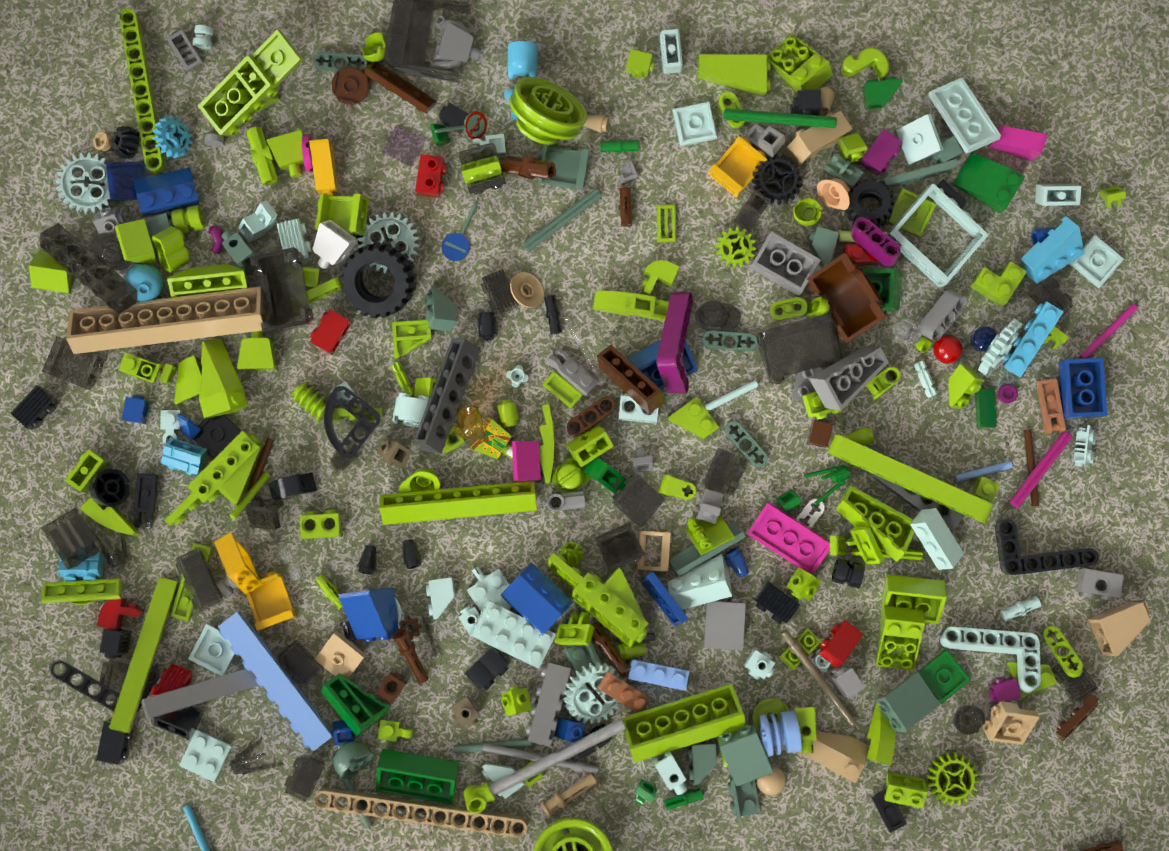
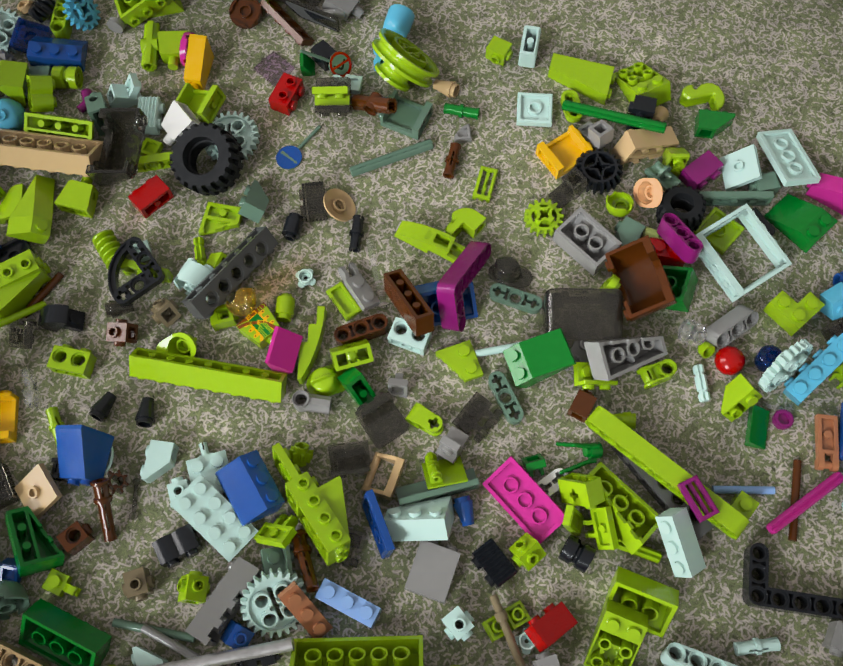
camera: 20 degrees right, 15 degrees down
(358, 484) = (121, 332): none -> reddish brown brick
(629, 653) = (331, 572): lime cone -> none
(769, 400) = (539, 358): none -> green slope
(787, 308) = (579, 280): lime plate -> none
(839, 516) = (581, 490): none -> lime brick
(955, 511) = (691, 502): none -> magenta tile

